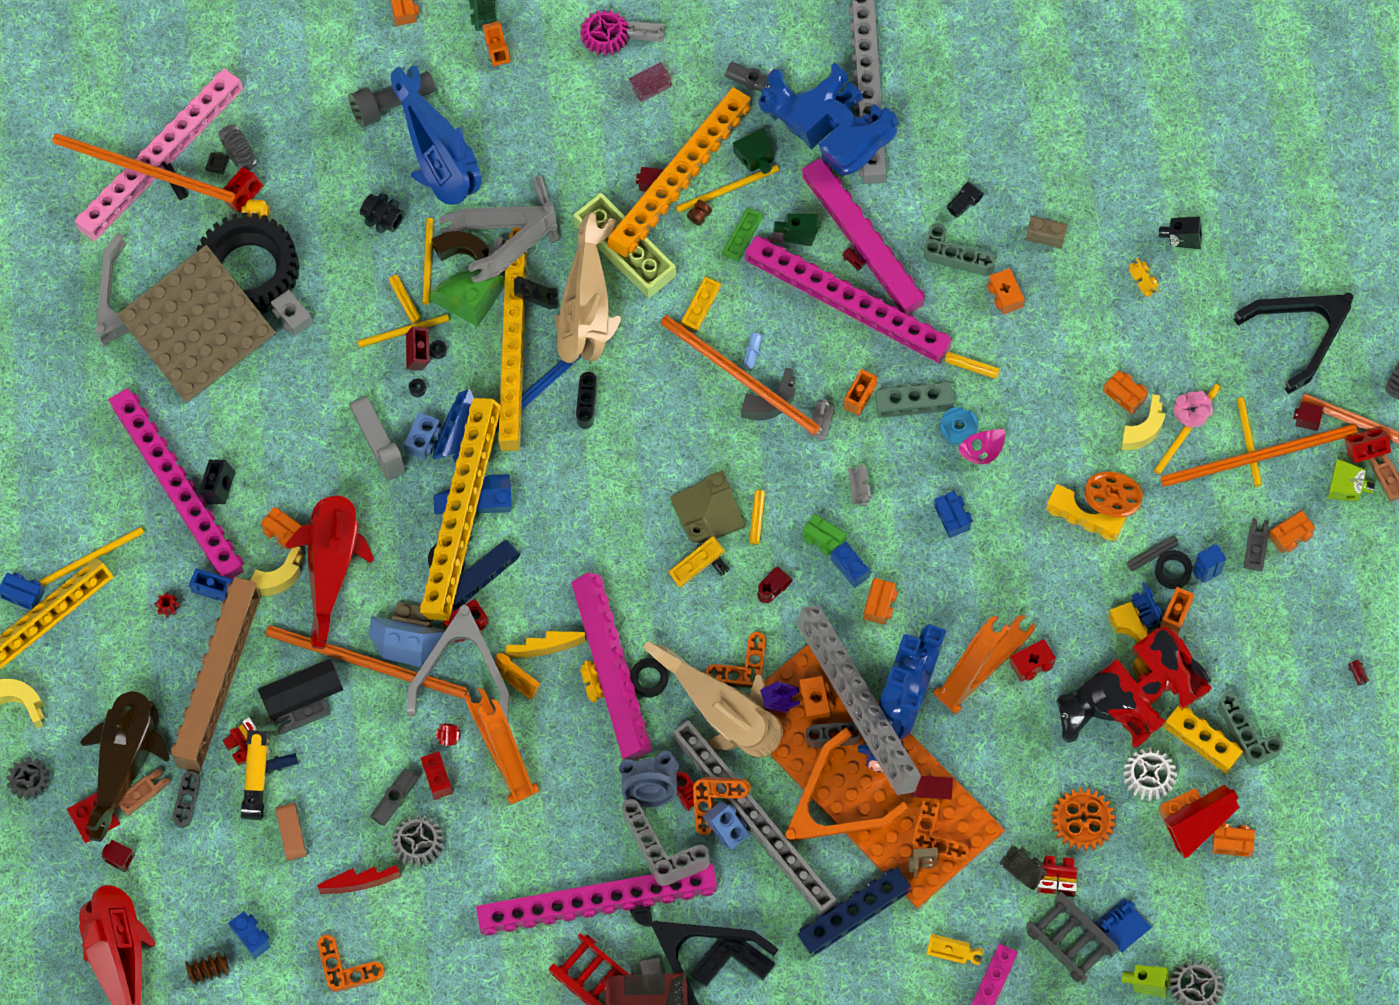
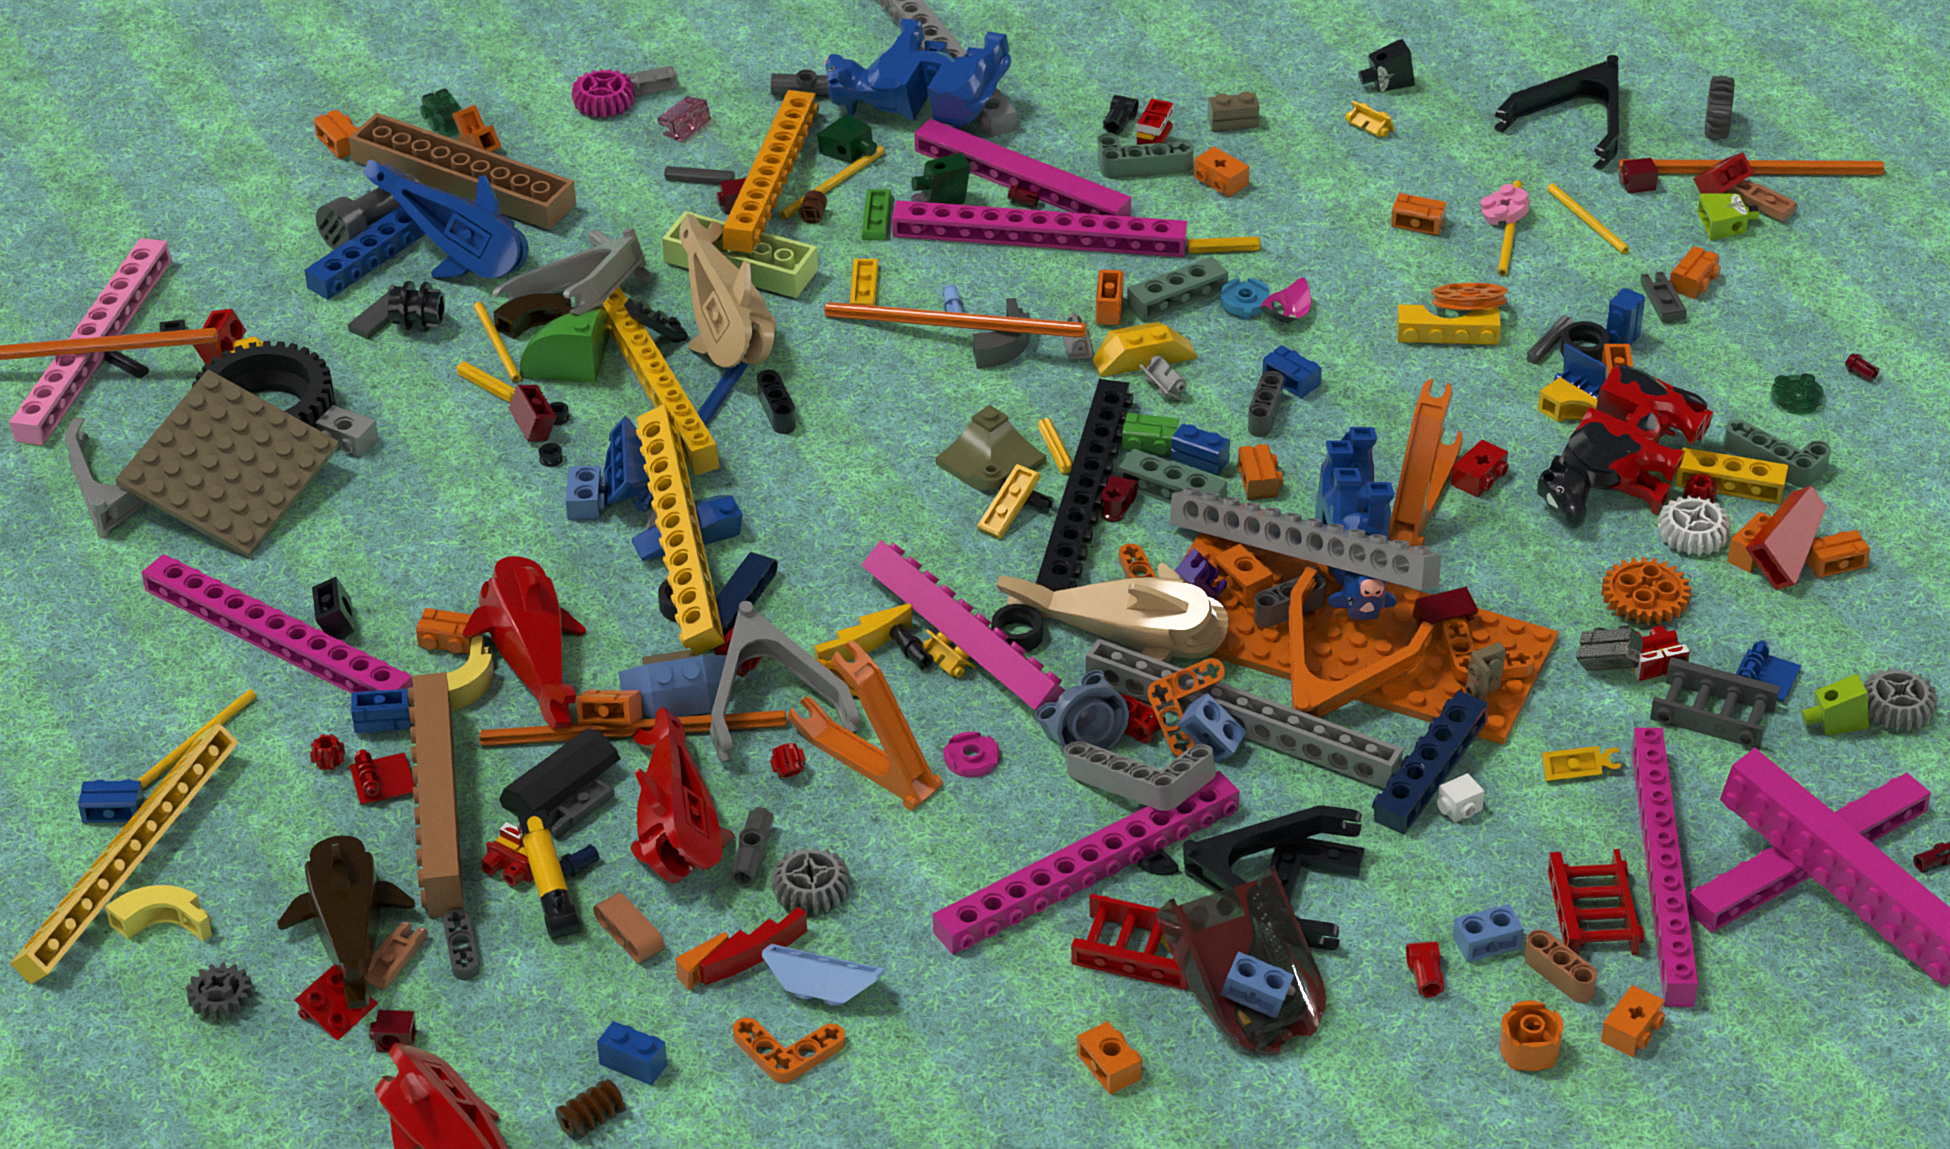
camera: 25 degrees left, 25 degrees down
(192, 638) = (381, 777): none -> red hinge
(237, 147) = (193, 296): dark grey gear -> none
(314, 878) = (688, 963): none -> orange slope
(351, 206) = (372, 319): none -> dark grey hinge
(353, 755) = (674, 806): none -> red animal
(354, 643) = (609, 707): none -> orange brick
(366, 134) = (362, 253): none -> blue brick
(384, 452) = (550, 520): light grey beam -> none
(389, 921) = (819, 975): none -> light blue wedge
(402, 331) = (491, 416): yellow piece -> none
(436, 775) = (797, 805): red brick -> none
(470, 81) = (456, 167): none -> medium nougat brick
(565, 784) = (971, 766): none -> dark pink tile
(573, 664) = (911, 646): none -> black pin
(636, 145) = (697, 175): none -> dark grey axle
(802, 562) = (1161, 477): none -> sand green brick
(811, 487) = (1085, 486): none -> black brick
(859, 948) = (1460, 798): none -> white brick
(862, 447) = (1136, 345): none -> yellow wedge
(921, 530) = (1265, 403): none -> dark grey beam
(978, 229) = (1154, 122): none -> red hips
(1143, 434) = (1465, 240): light yellow arch -> none
(1172, 750) = (1700, 486): none -> red gear
(1258, 455) = (1605, 221): orange axle -> none
(1295, 667) = (1783, 393): none -> clear green plate

